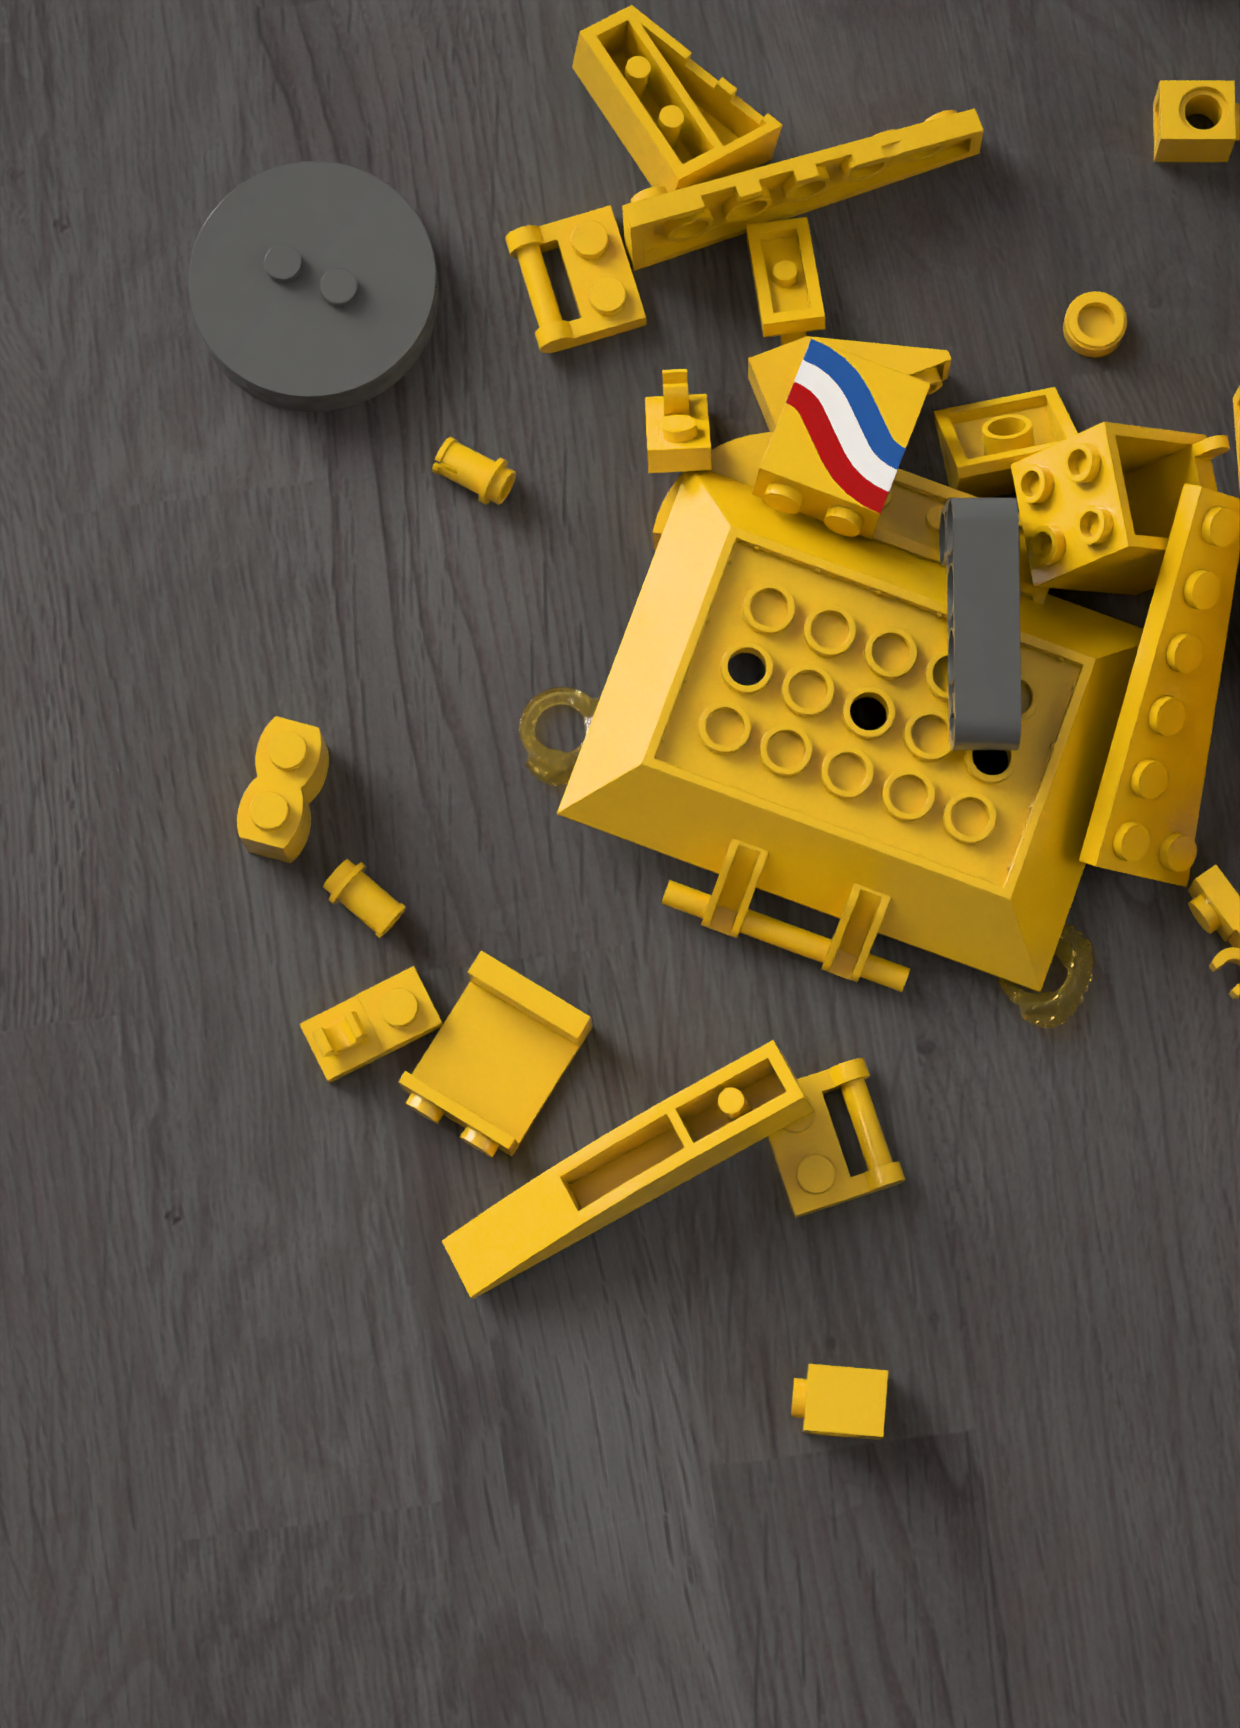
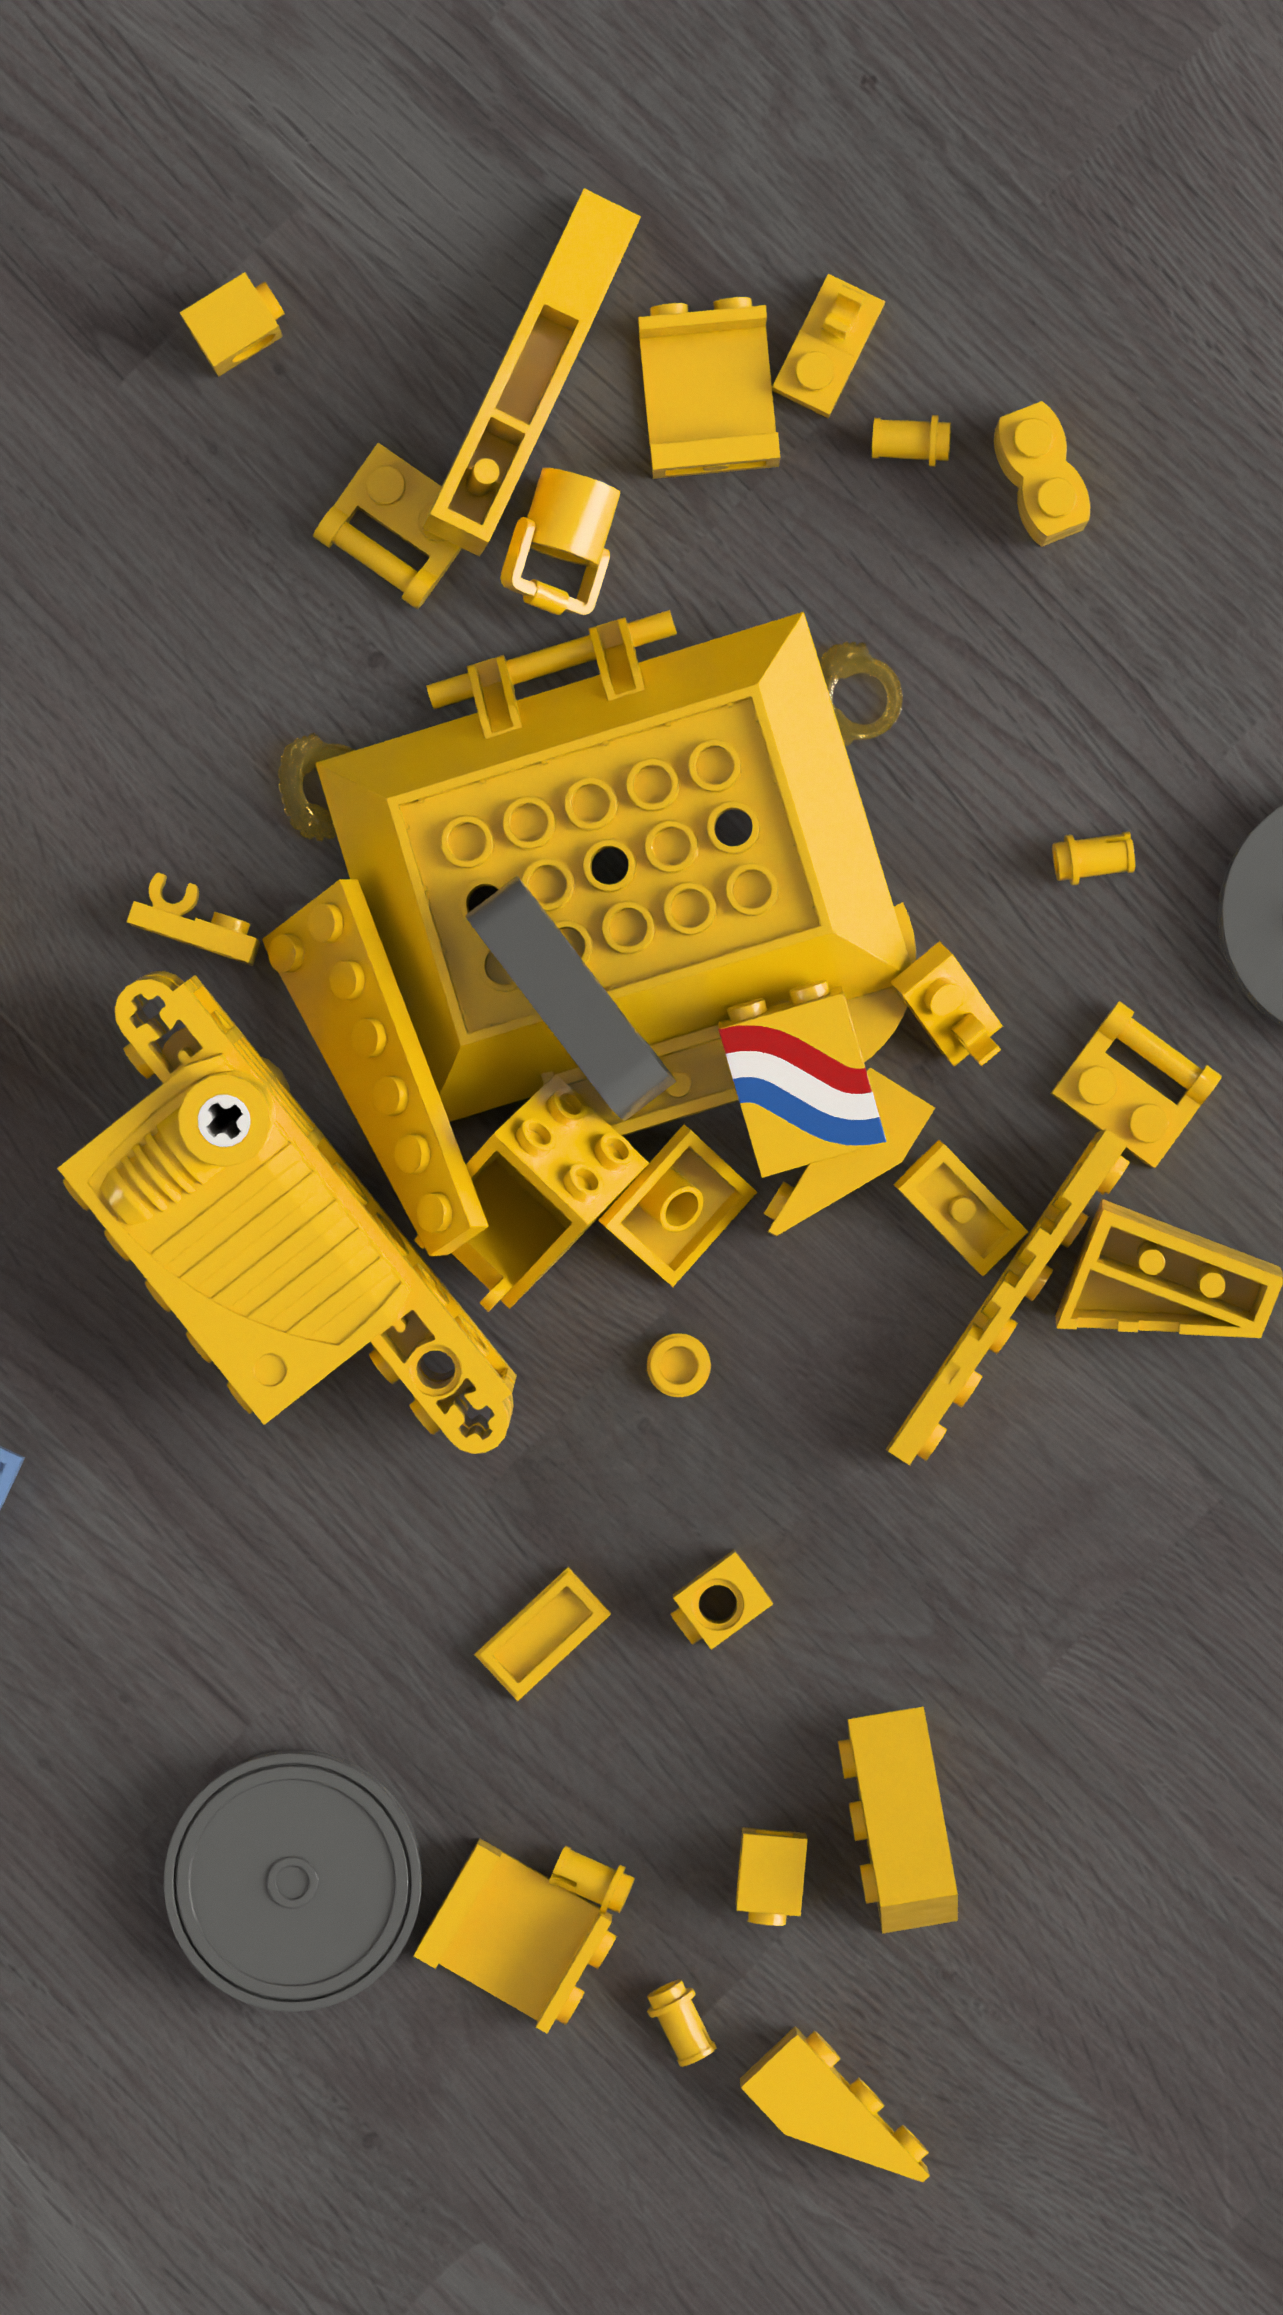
camera: 135 degrees right, 10 degrees up
(690, 1032) = (569, 523): none -> yellow piece

